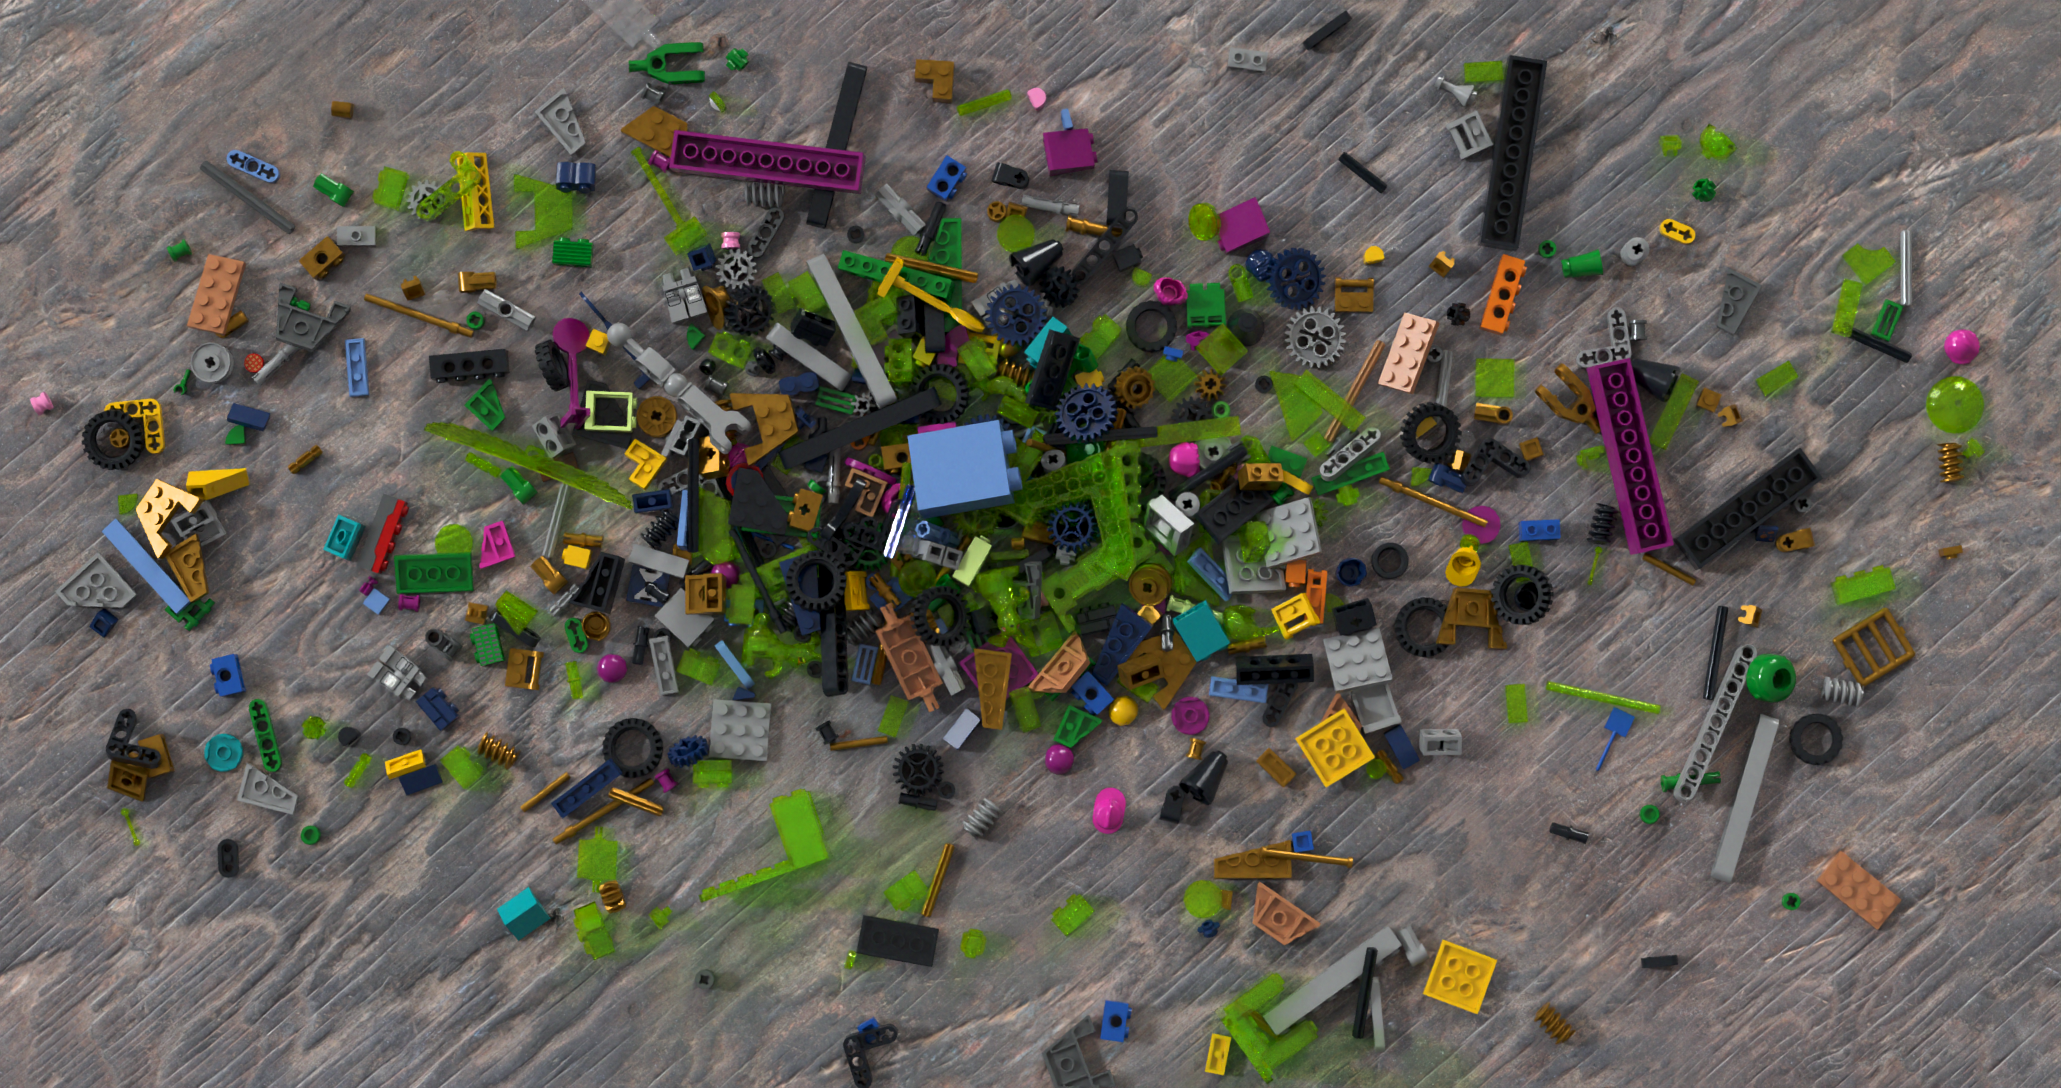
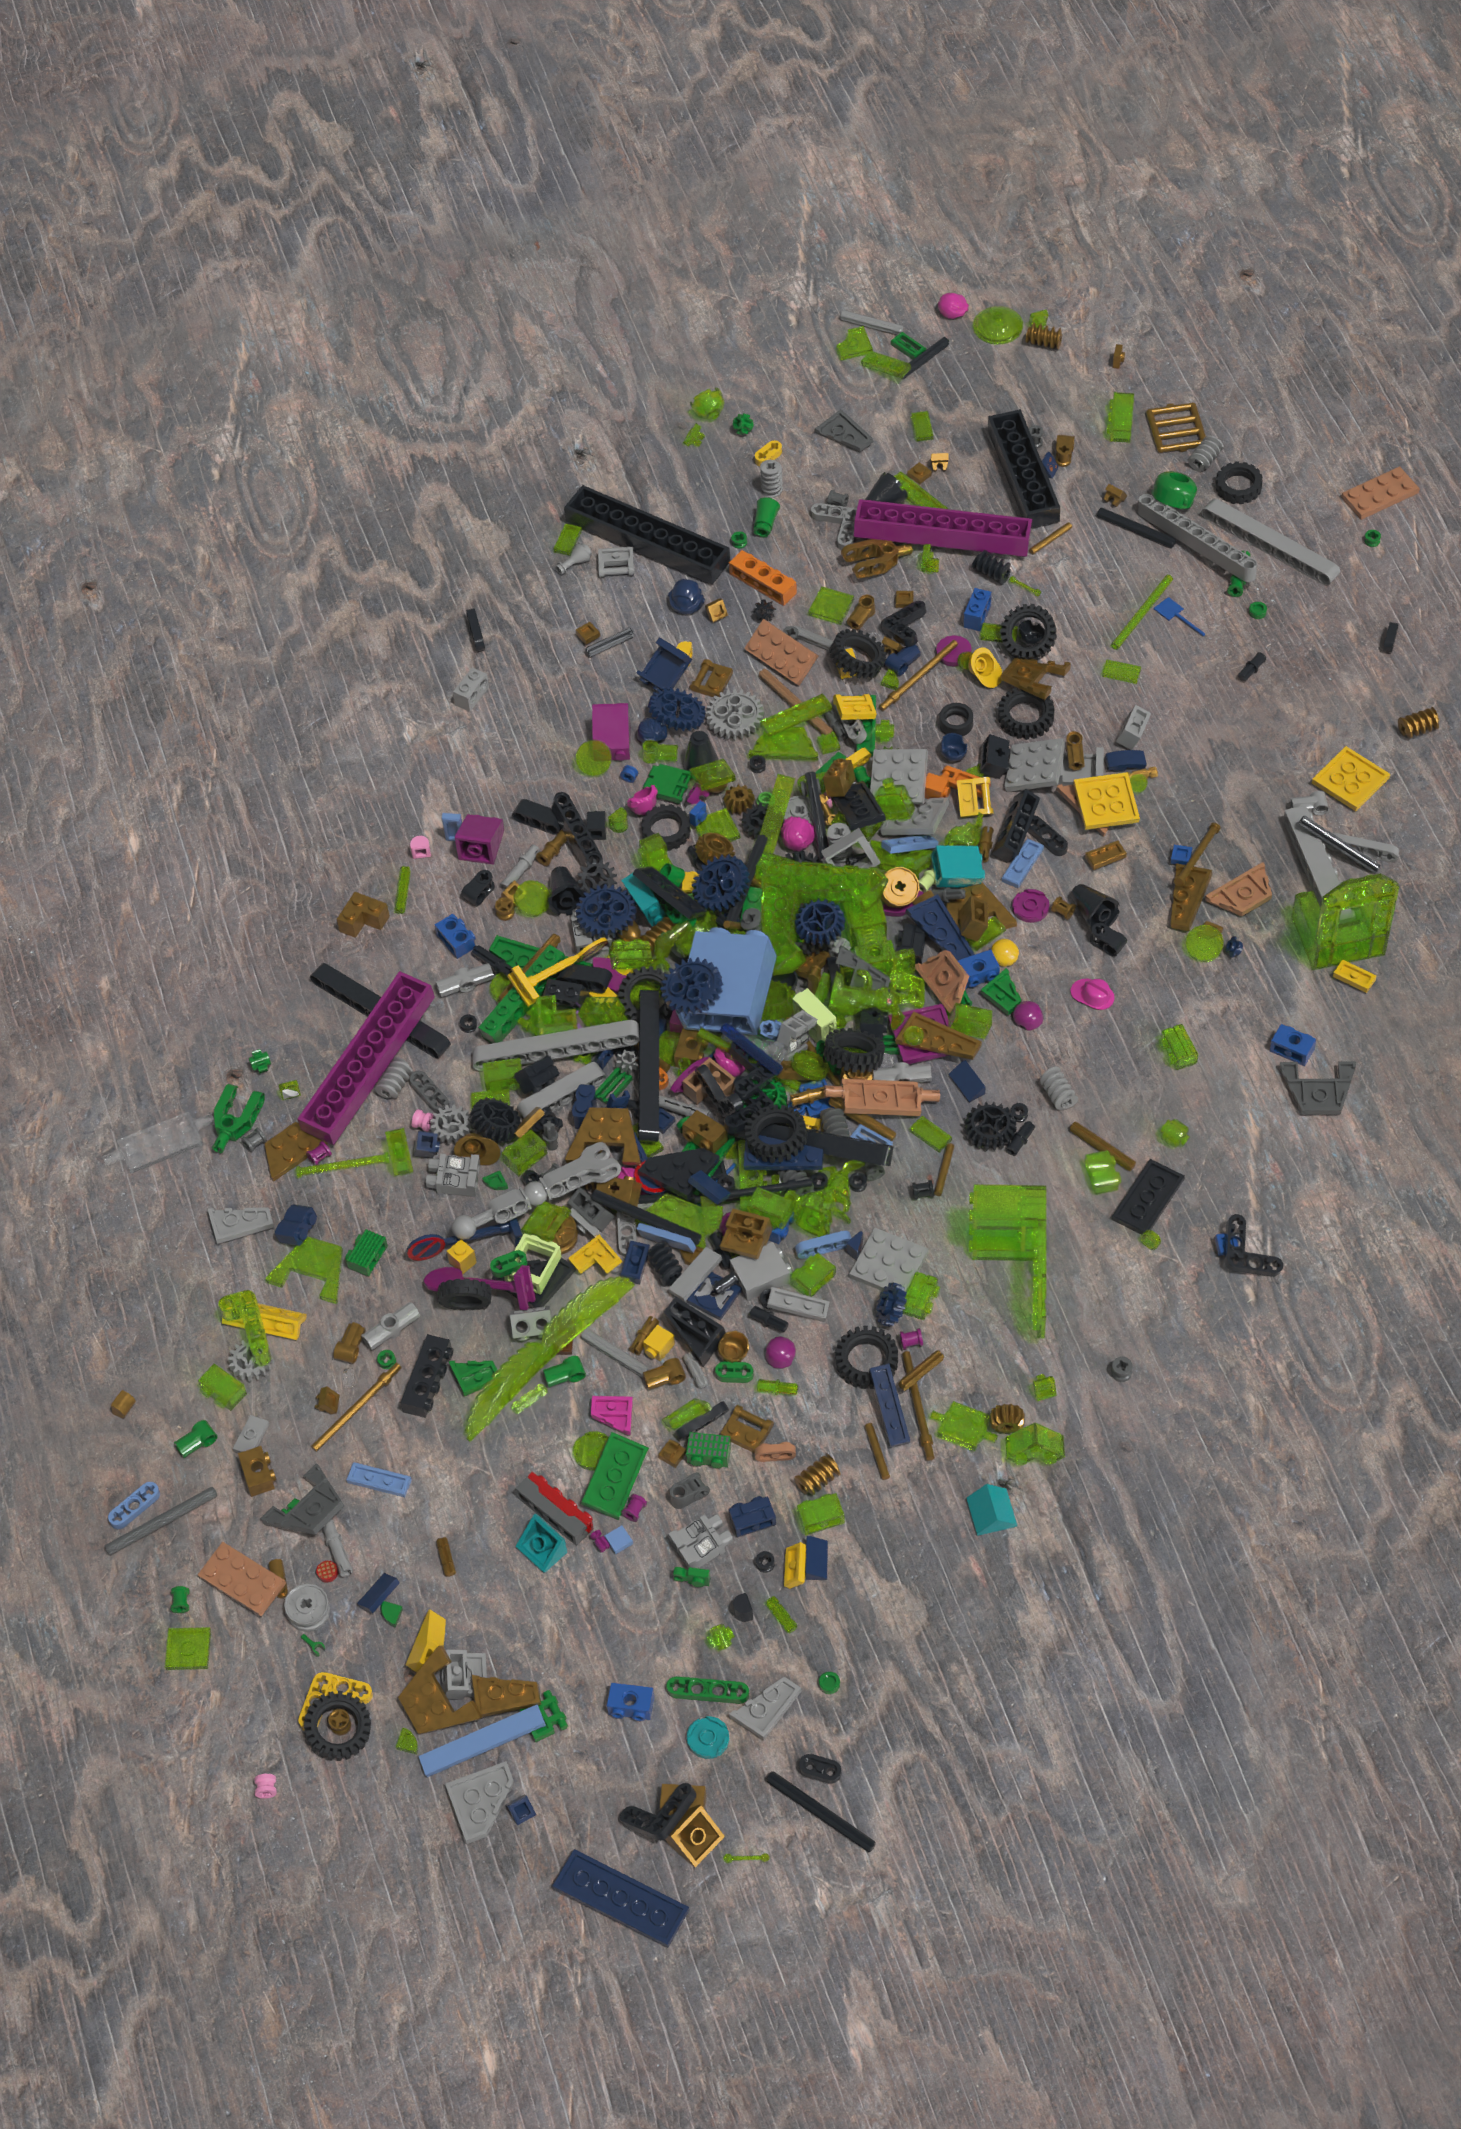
camera: 65 degrees left, 30 degrees down
(55, 739) = (621, 1898): none -> dark blue plate
(141, 278) = (188, 1648): none -> clear neon green tile
(192, 872) = (821, 1811): none -> black axle
(362, 685) = (694, 1576): none -> green plate
(505, 697) = (775, 1452): none -> nougat plate
(589, 396) = (508, 1263): none -> green beam
(655, 399) = (541, 1219): none -> clear neon green plate
(740, 541) = (709, 1187): none -> dark blue tile
(759, 343) = (529, 1121): none -> pearl gold tile
(927, 459) = (691, 986): none -> dark blue gear
(981, 664) = (913, 1035): none -> clear neon green tile
(1202, 263) = (629, 774): none -> blue bush
(1343, 244) = (665, 666): none -> dark blue panel
(1353, 458) = (854, 707): none -> yellow plate
(1365, 146) = (587, 633): none -> pearl gold plate
(1384, 695) = (1075, 751): none -> pearl gold piece
(1445, 227) = (686, 597): none -> dark blue helmet

